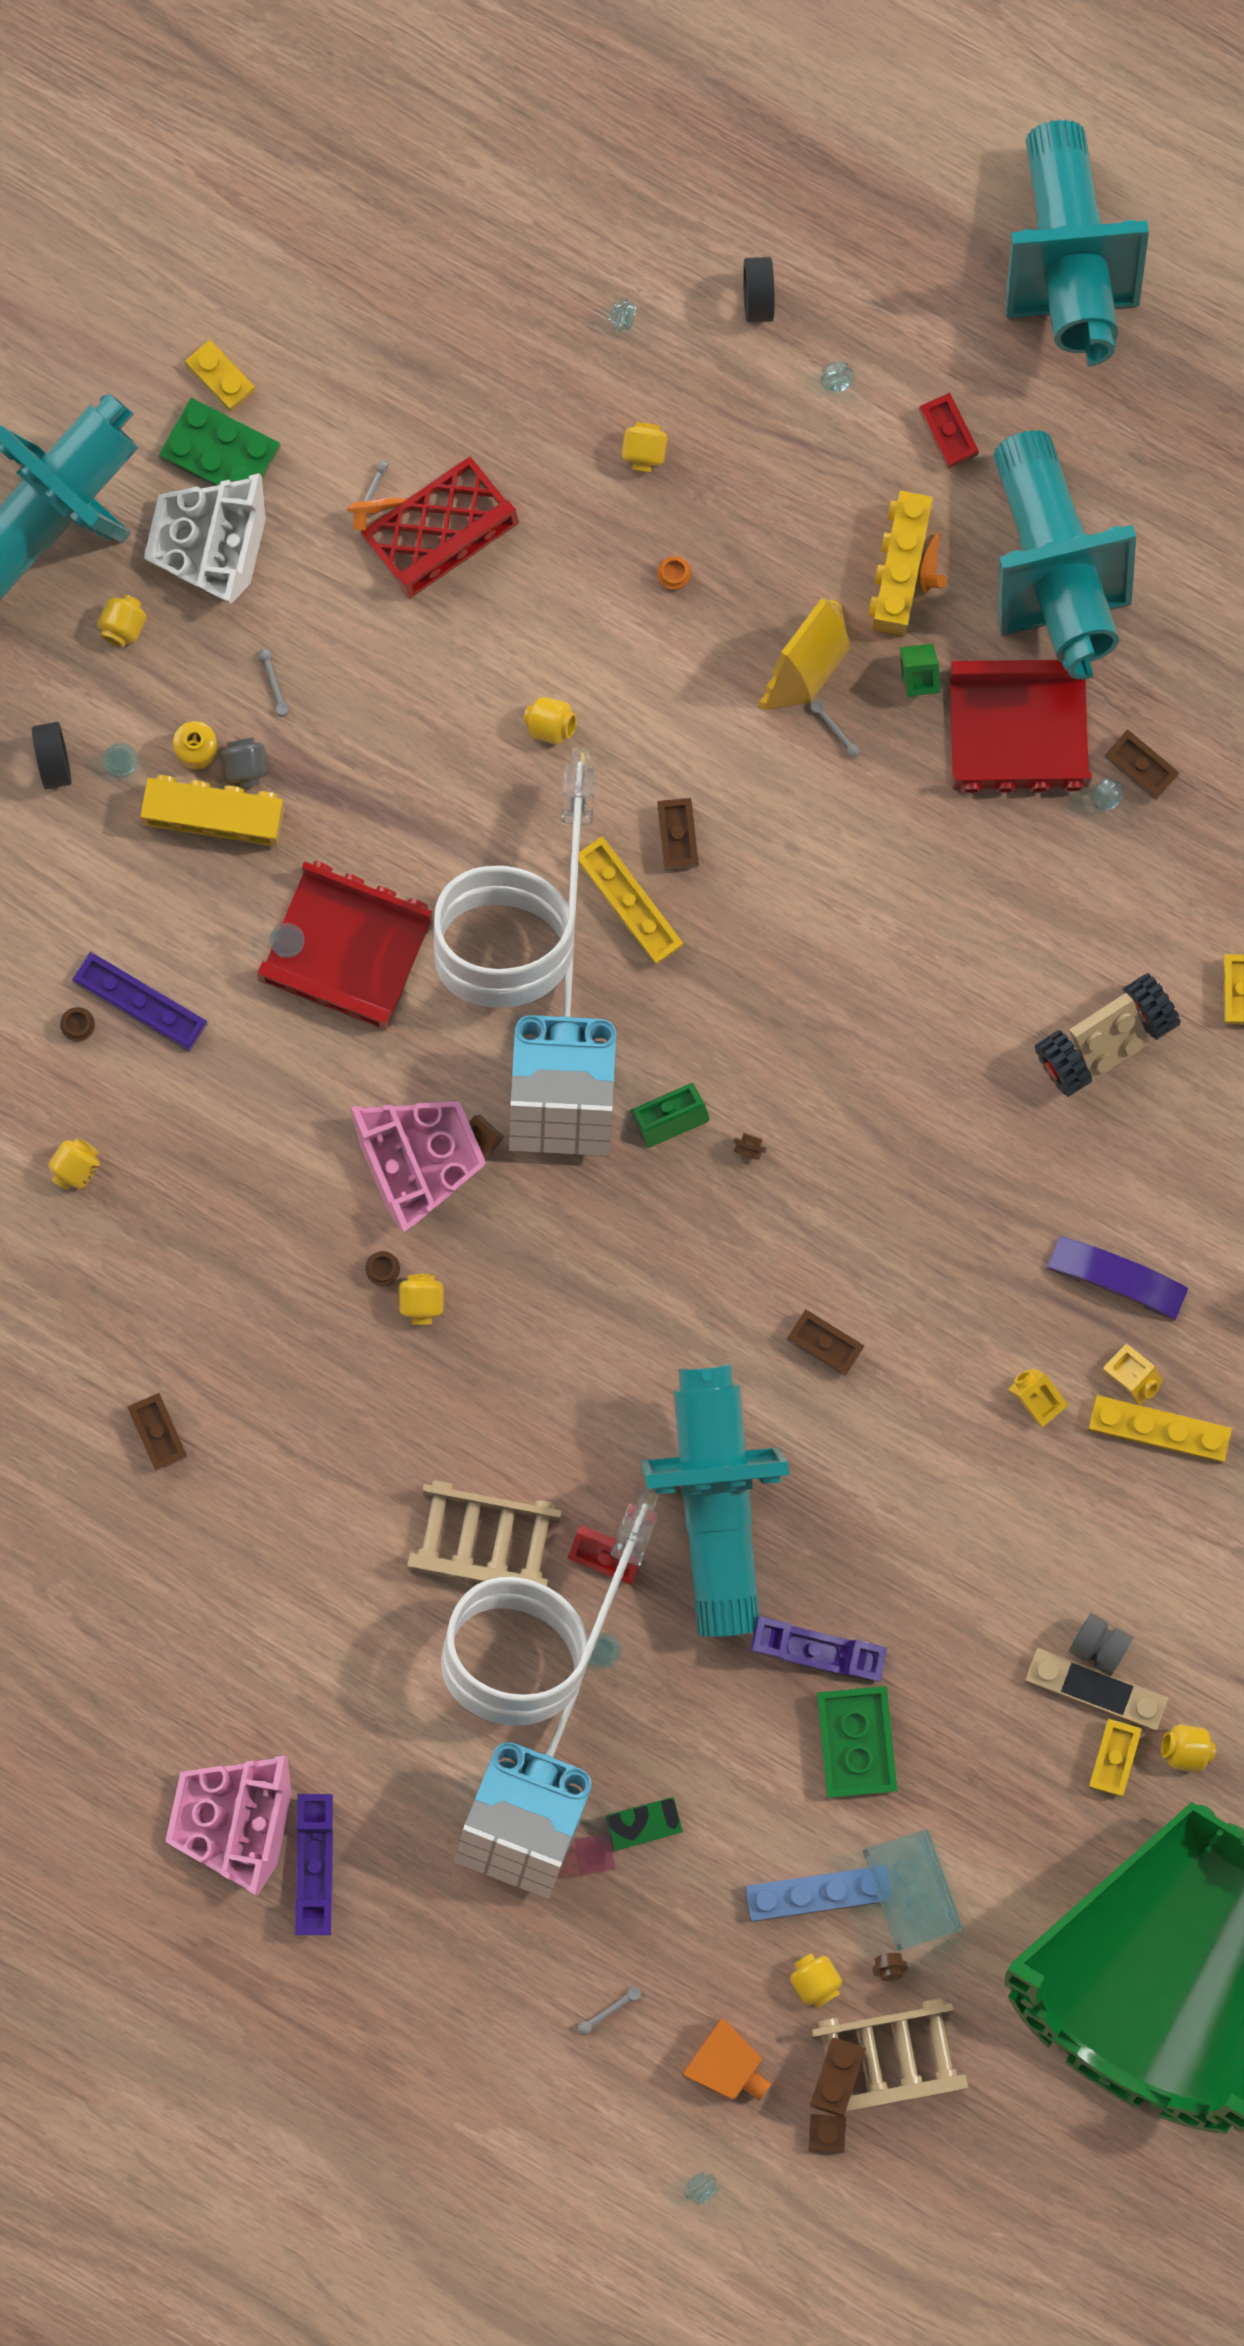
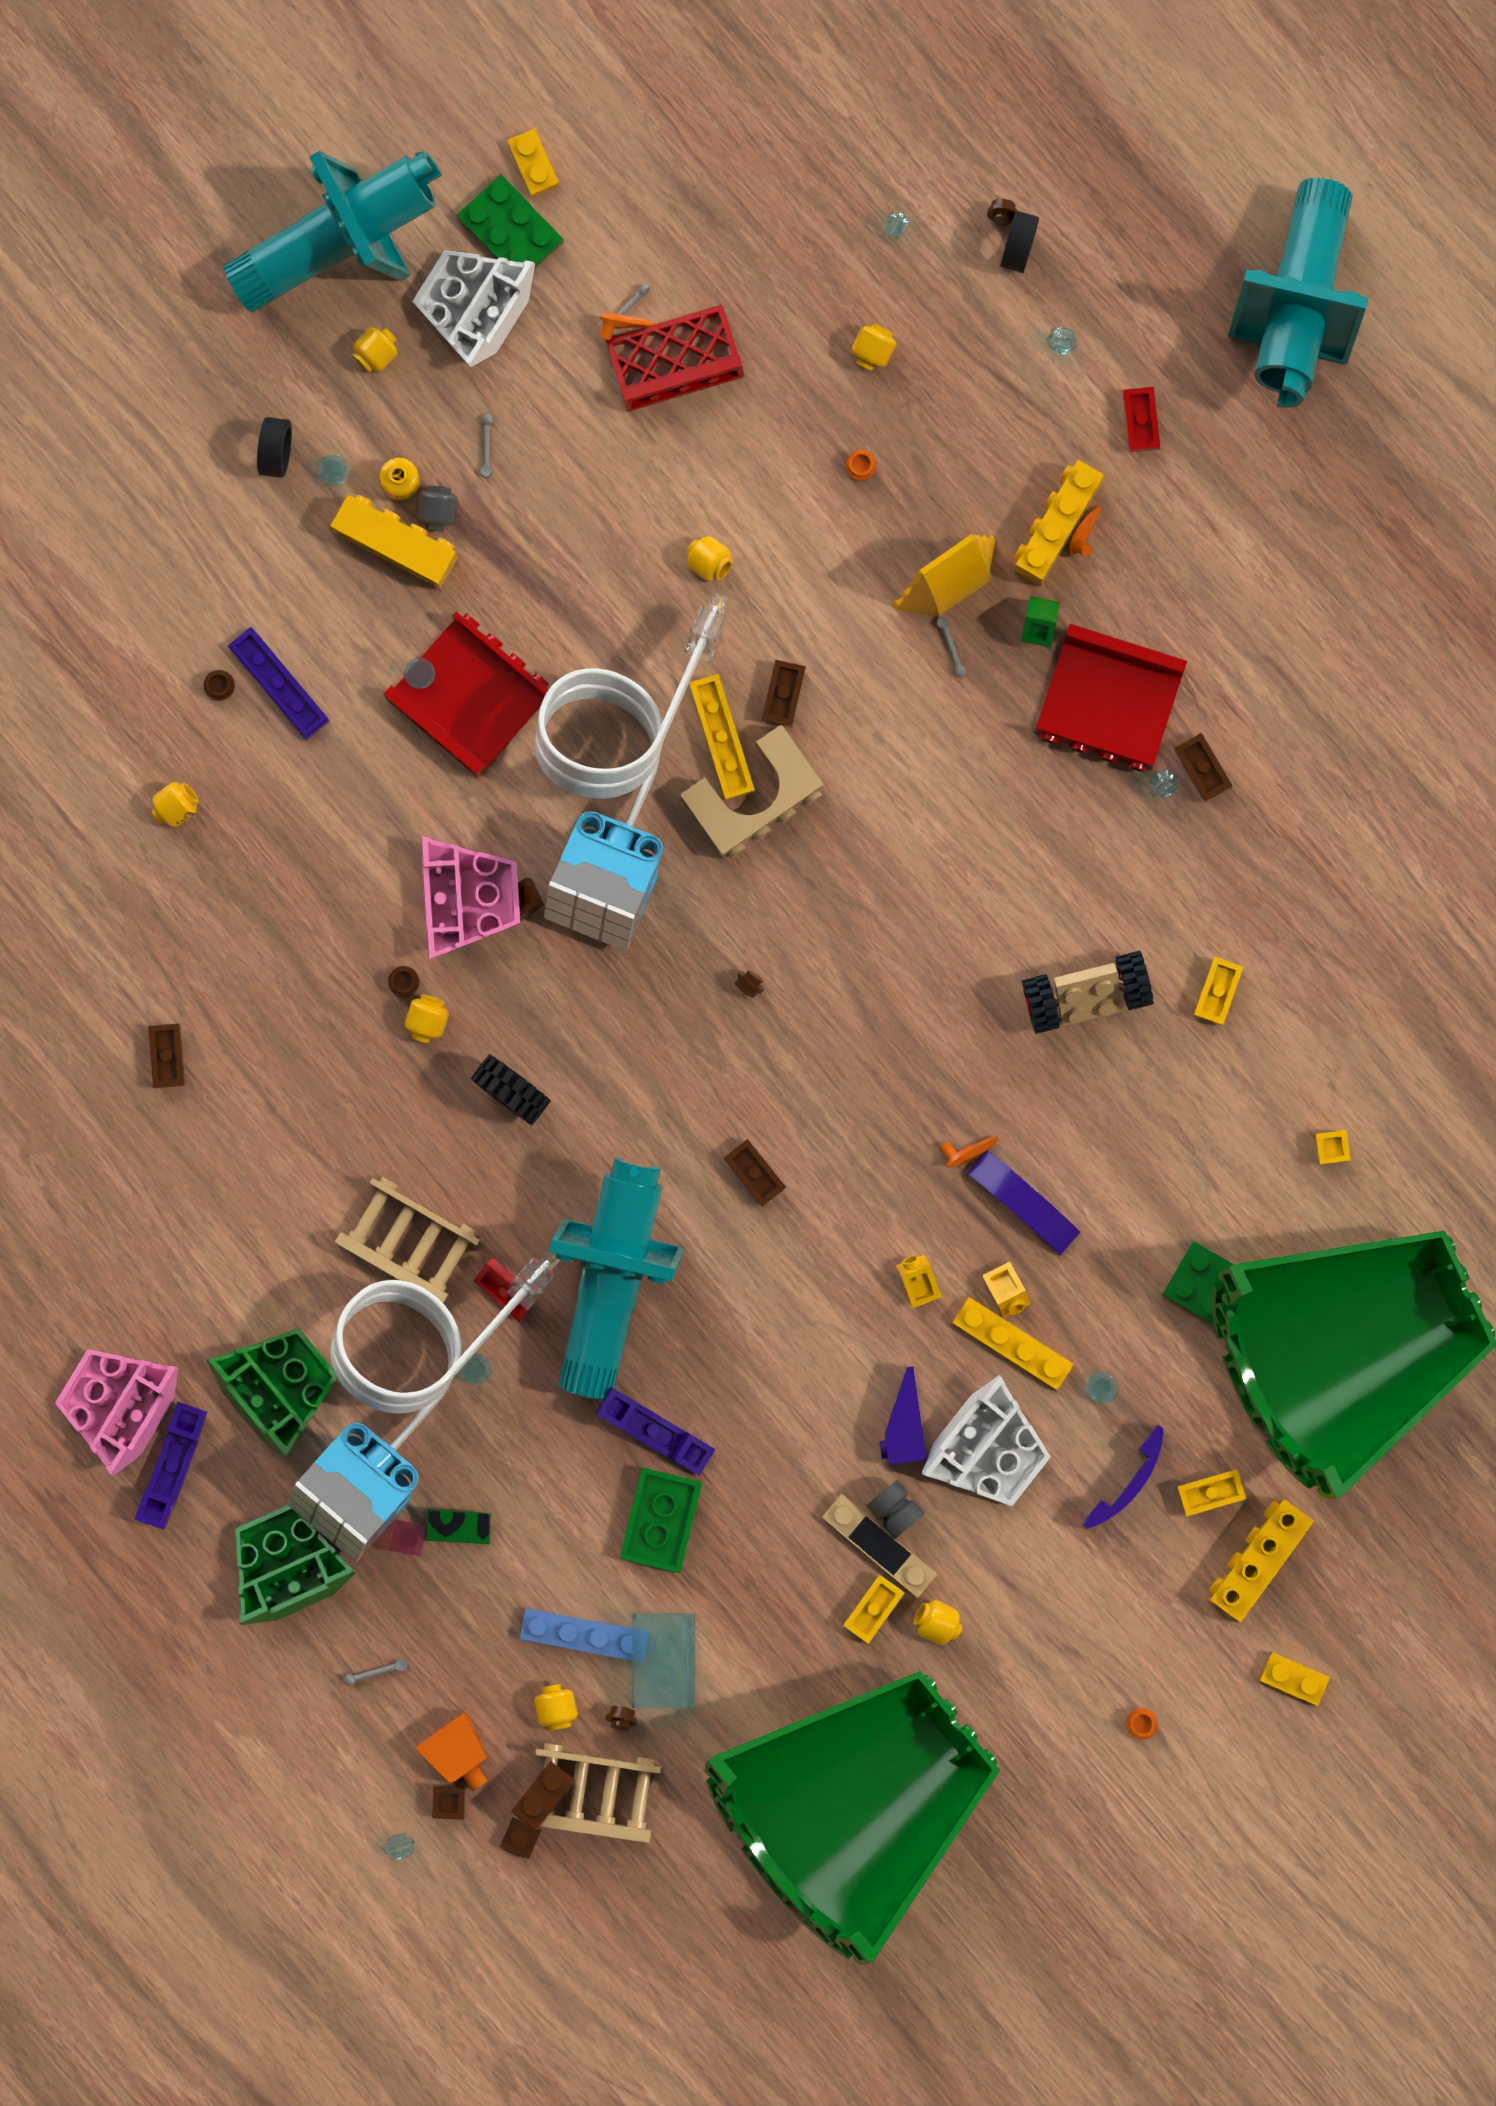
camera: 30 degrees right, 5 degrees up
(396, 1741) = (275, 1385): none -> green wedge
(474, 1929) = (284, 1566): none -> green wedge
(538, 1340) = (510, 1089): none -> black tyre
(670, 1115) = (692, 933): green slope -> none
(672, 993) = (731, 830): none -> tan arch
(728, 266) = (1002, 211): none -> reddish brown plate
(737, 2122) = (448, 1802): none -> reddish brown plate
(1041, 1246) = (967, 1154): none -> orange bar
(1061, 572) = (1190, 581): teal piece -> none
(1080, 1559) = (904, 1430): none -> dark purple slope
(1174, 1544) = (988, 1447): none -> white wedge

